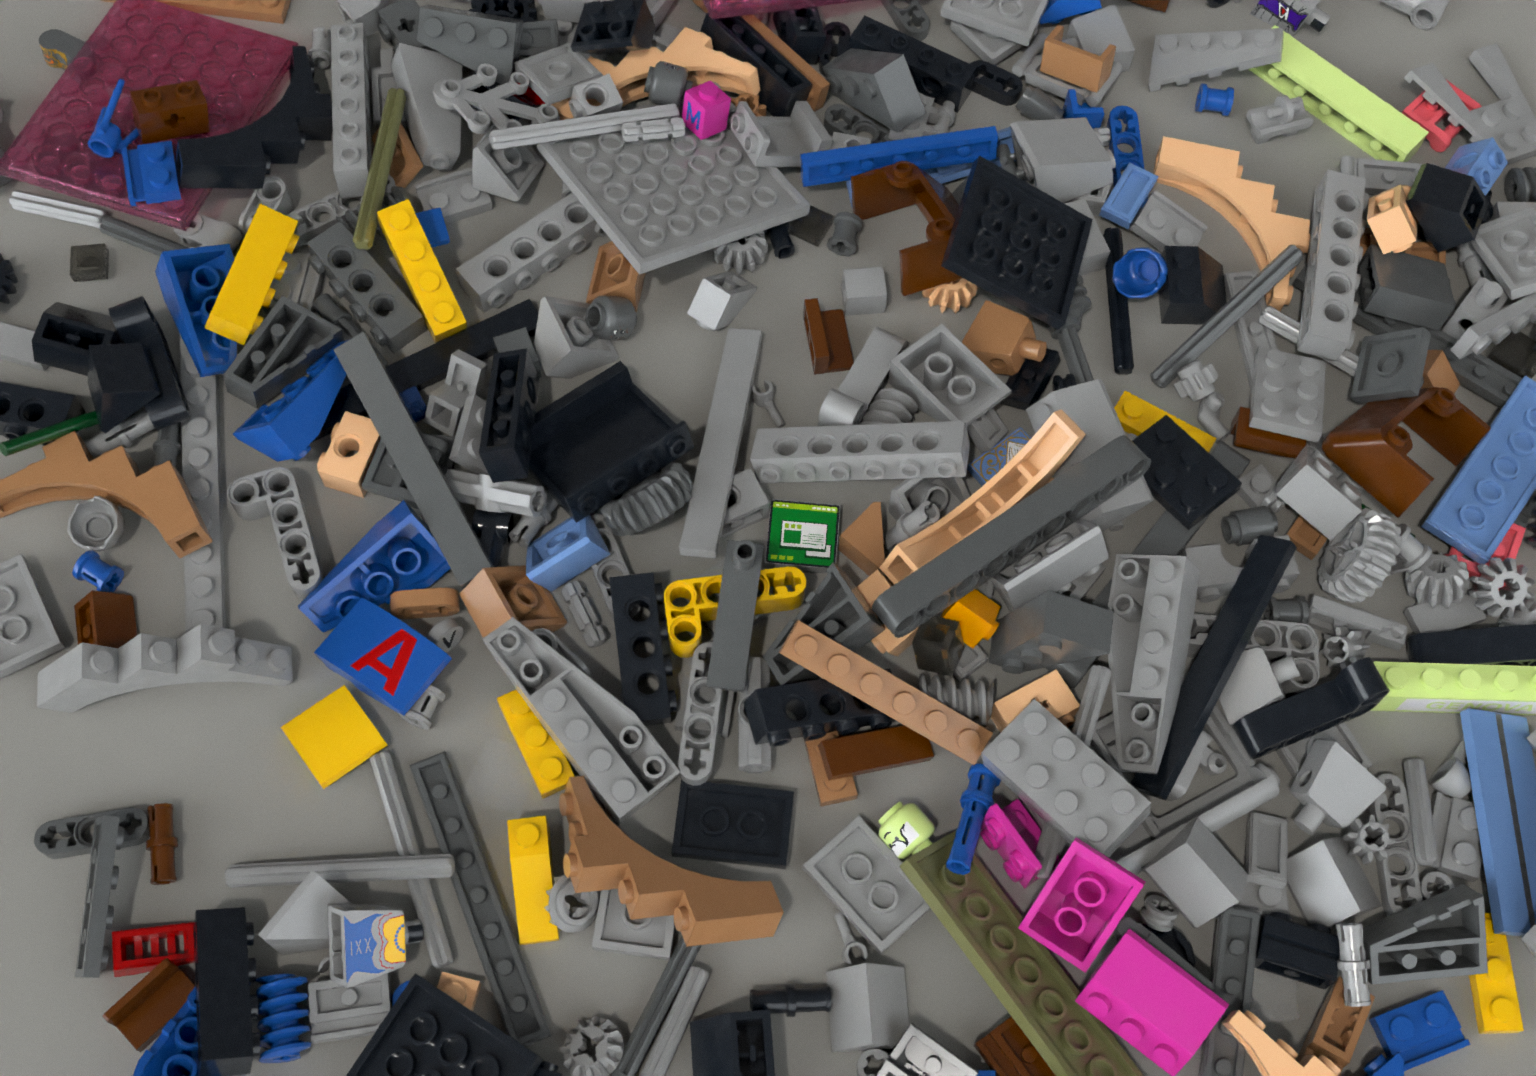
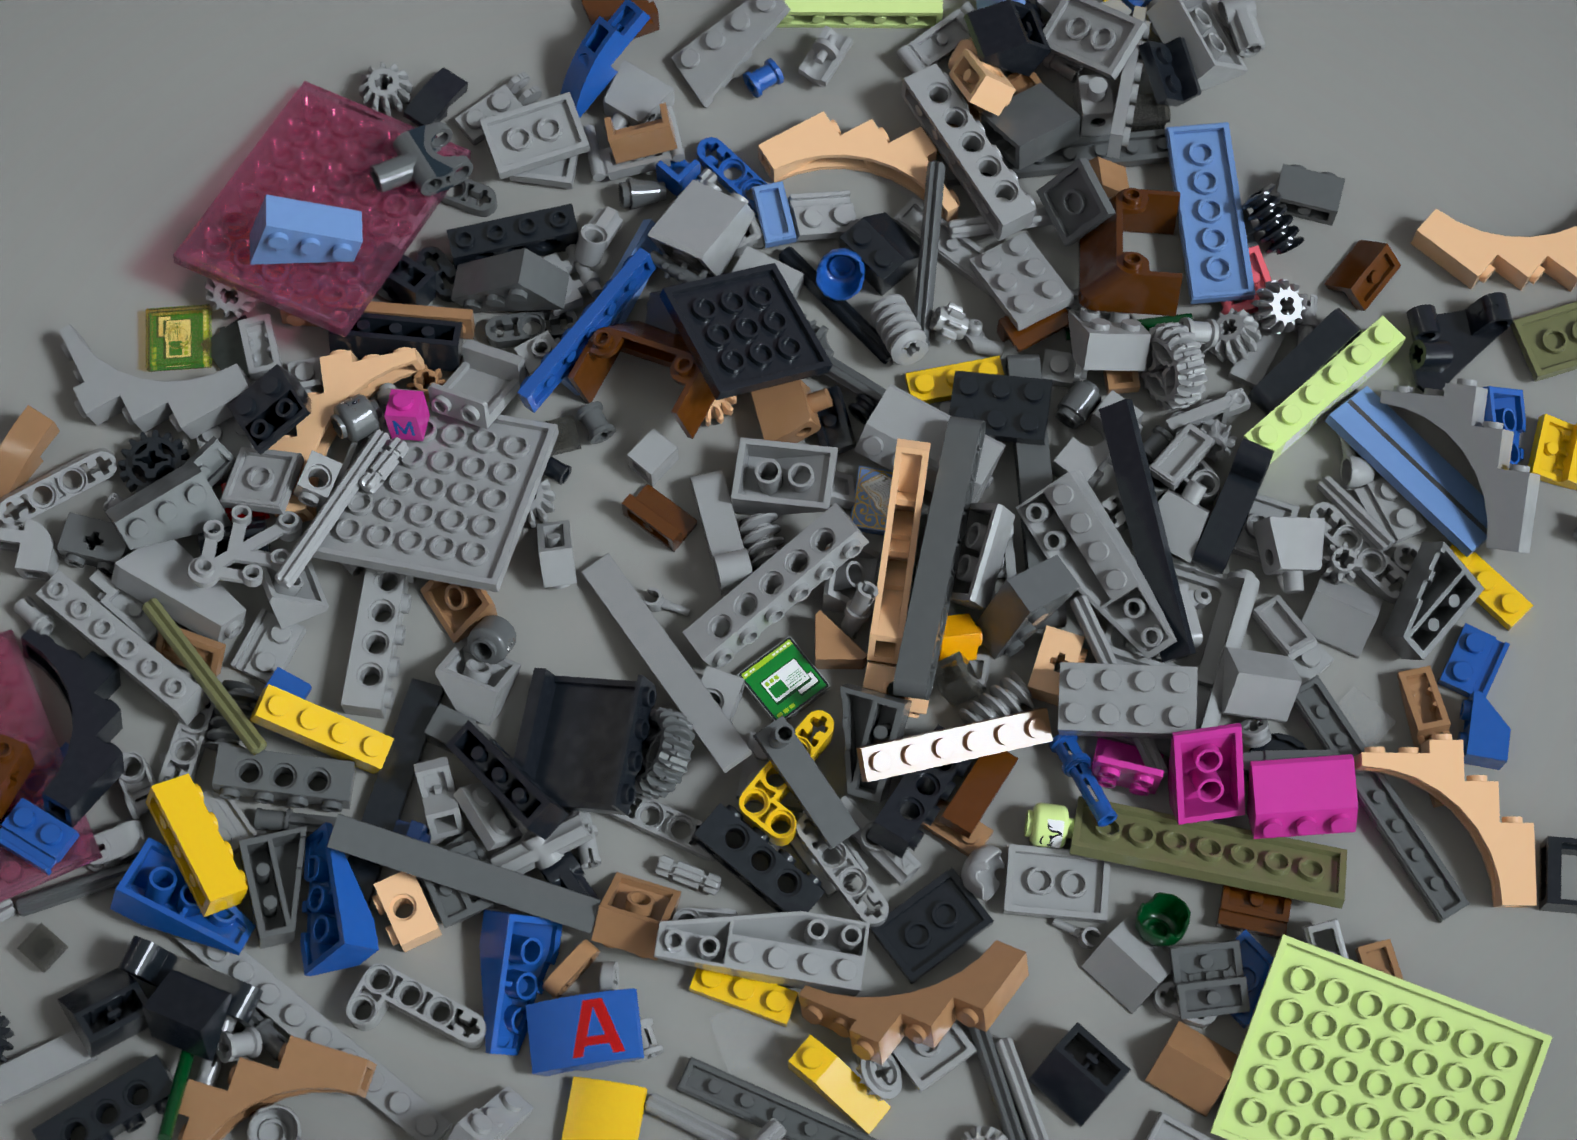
camera: 40 degrees left, 5 degrees up
(135, 439) = (239, 1044): none -> light grey bush
(564, 553) = (633, 843): medium blue slope -> none
(791, 1000) = (1078, 1005): black pin -> none
(813, 817) = (980, 871): none -> light grey hair
(929, 995) = (1163, 919): none -> dark green hair
(973, 105) = (597, 236): none -> light grey piece
(995, 82) = (587, 198): black beam -> none
(1149, 350) = (899, 330): none -> light grey piece
(1297, 950) = (1359, 678): black brick -> none
(1300, 632) = (1181, 456): none -> light grey tile
(1353, 964) = (1402, 657): light grey pin -> none

